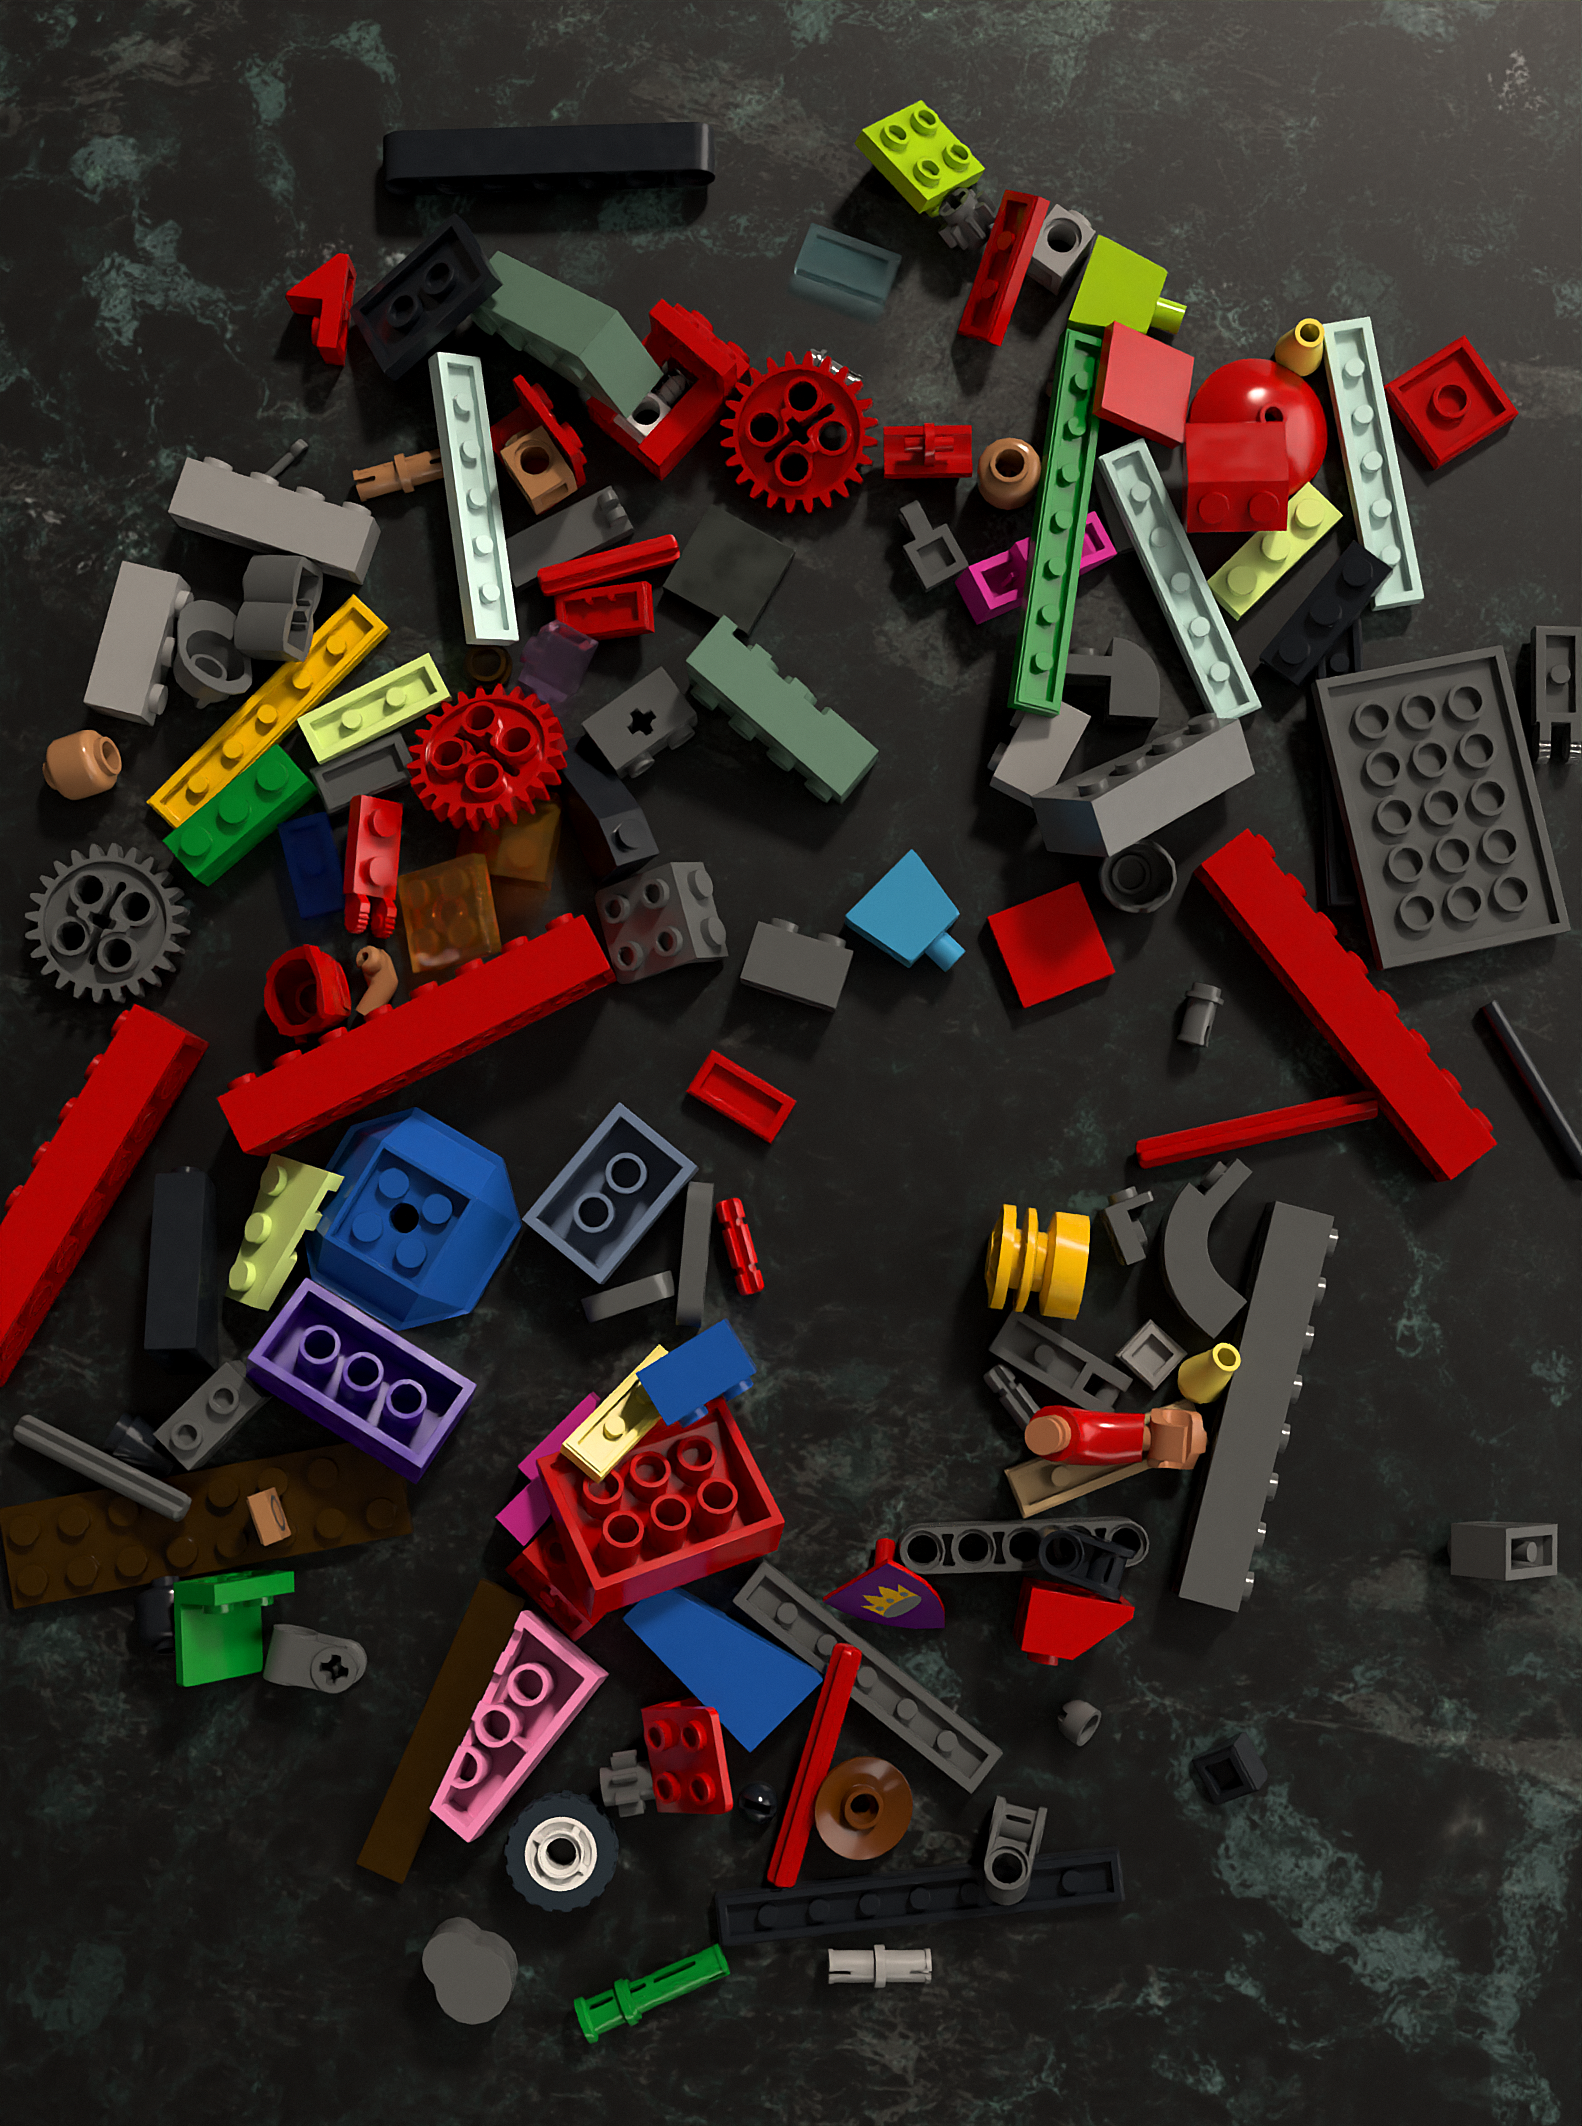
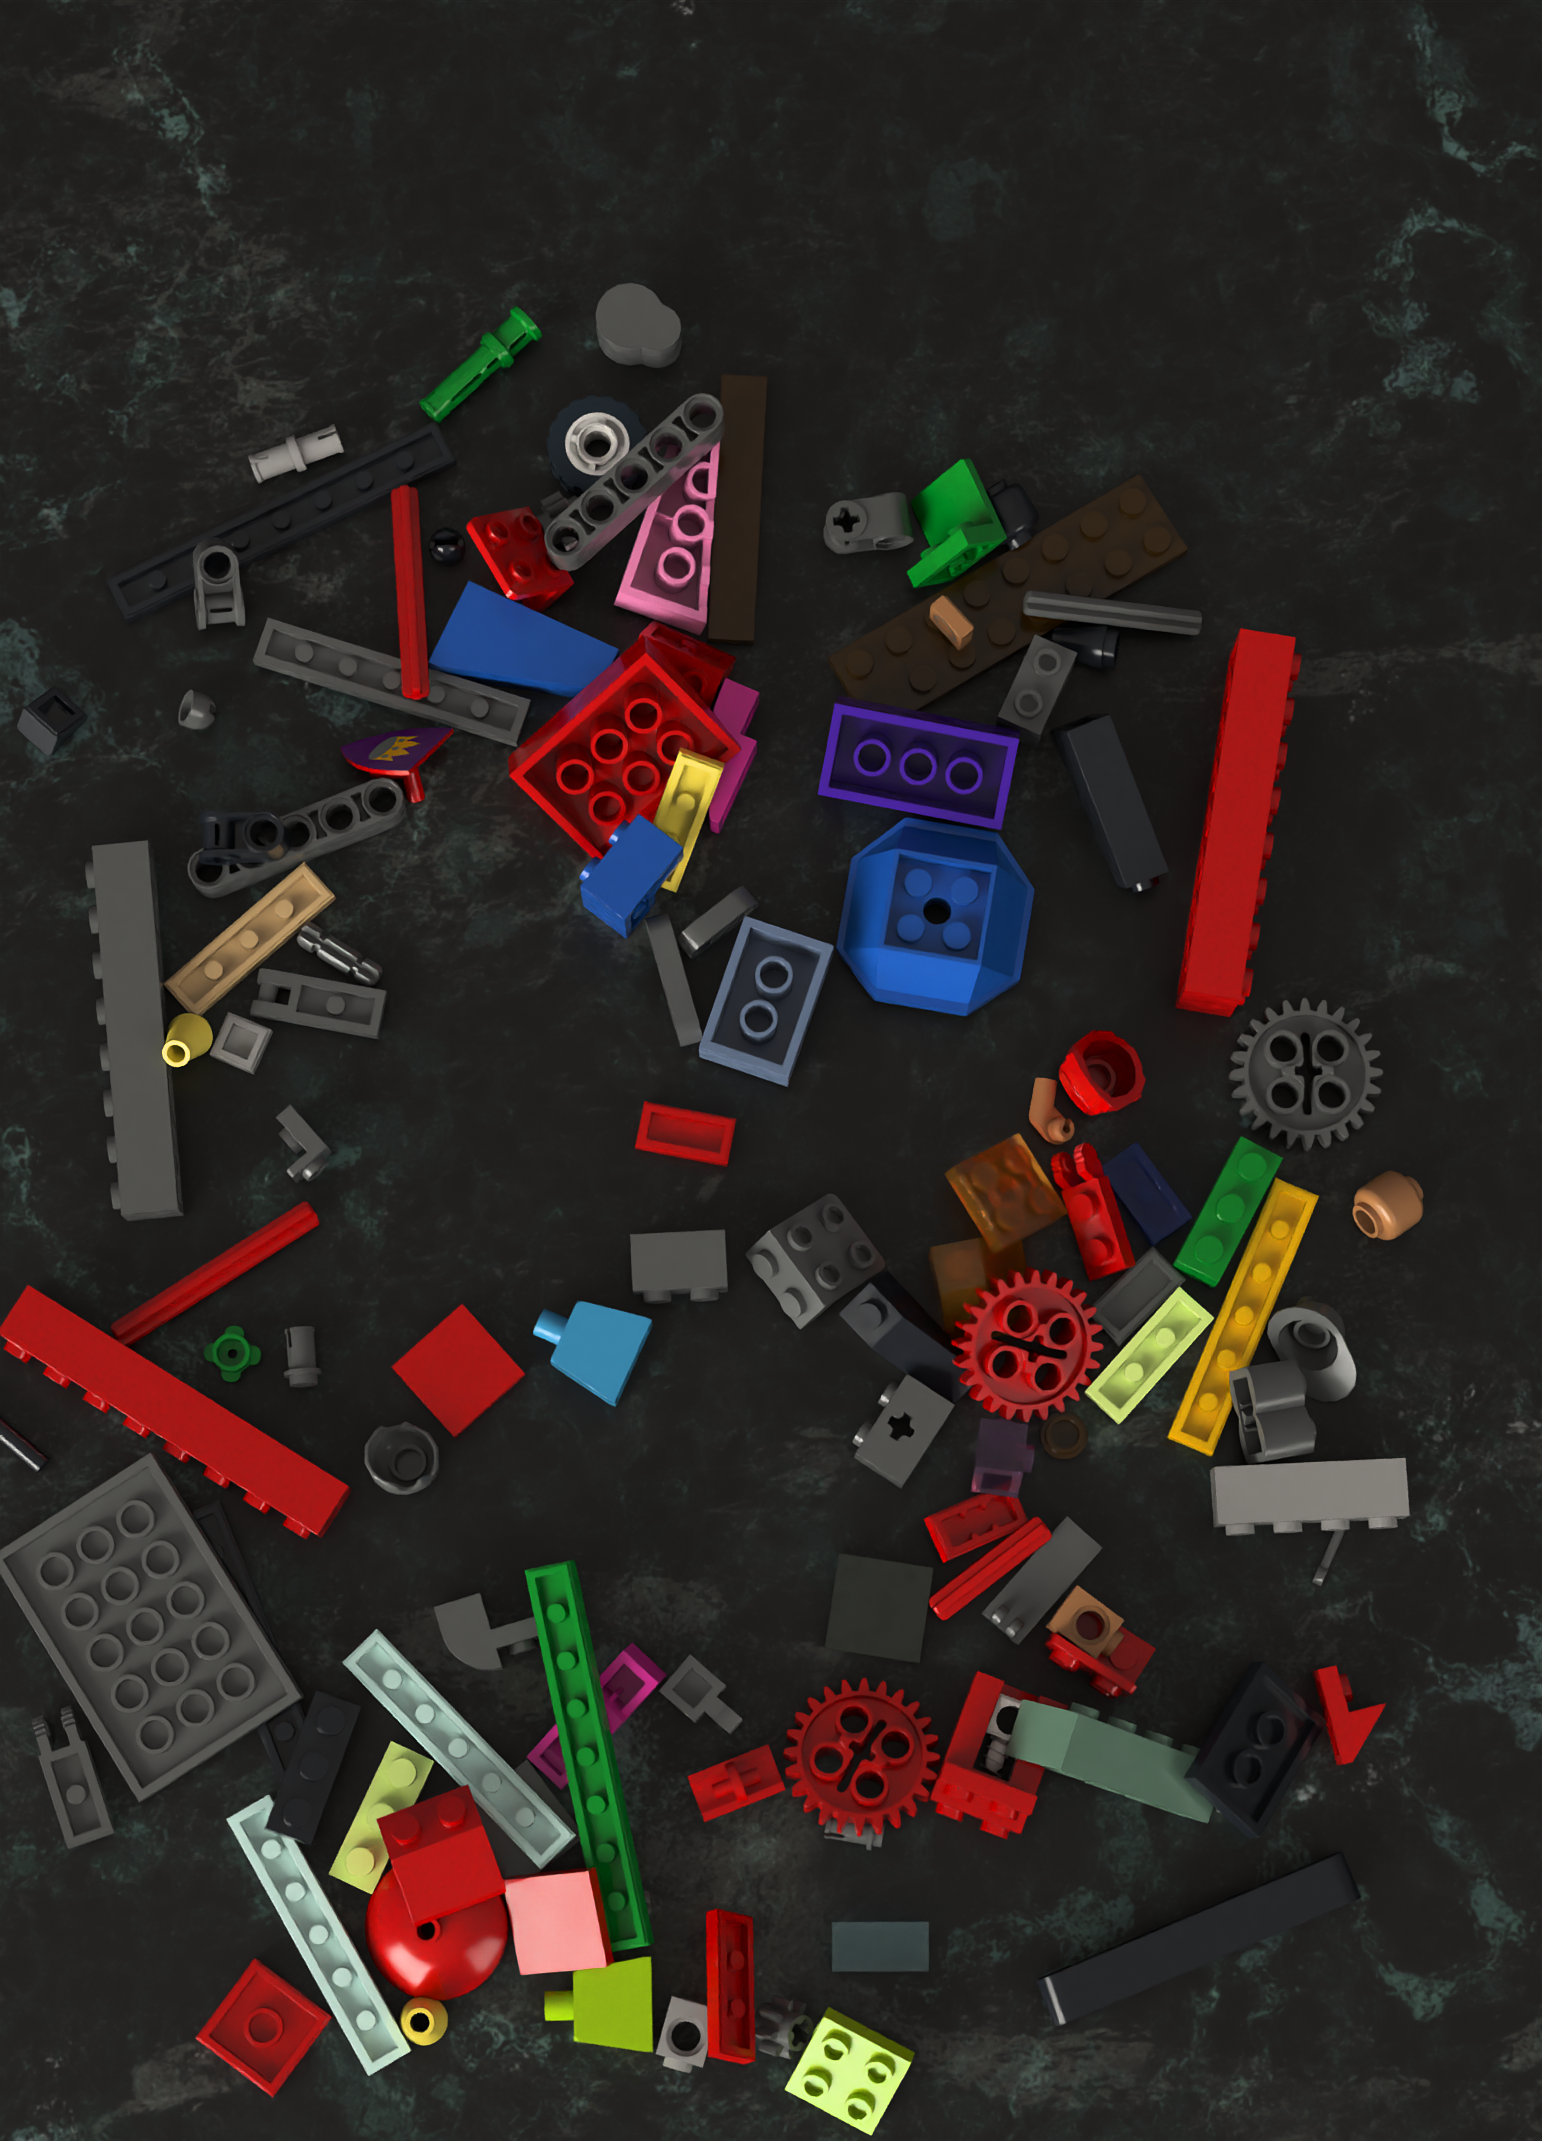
camera: 155 degrees right, 5 degrees down
(138, 644) = (1383, 1333): light grey brick -> none
(280, 1216) = (1046, 871): yellowish green wing -> none
(399, 474) = (1212, 1585): medium nougat pin -> none
(417, 1037) = (985, 1072): red brick -> none
(473, 499) = (1136, 1578): light aqua plate -> none
(517, 1808) = (639, 461): none -> dark grey beam
(739, 1246) = (637, 1002): red axle -> none
(778, 714) = (778, 1484): sand green wedge -> none
(881, 1819) = (340, 564): reddish brown dish -> none
(1022, 470) = (664, 1775): medium nougat head -> none
(1036, 752) = (531, 1535): light grey brick -> none
(1038, 1261) = (370, 1078): yellow wheel -> none
(1064, 1619) = (239, 781): red slope -> none
(1114, 1438) = (269, 946): piece -> none
(1143, 788) = (423, 1532): wedge -> none
(1183, 1251) = (226, 1114): dark grey arch -> none
(1279, 1047) = (232, 1340): none -> green plate

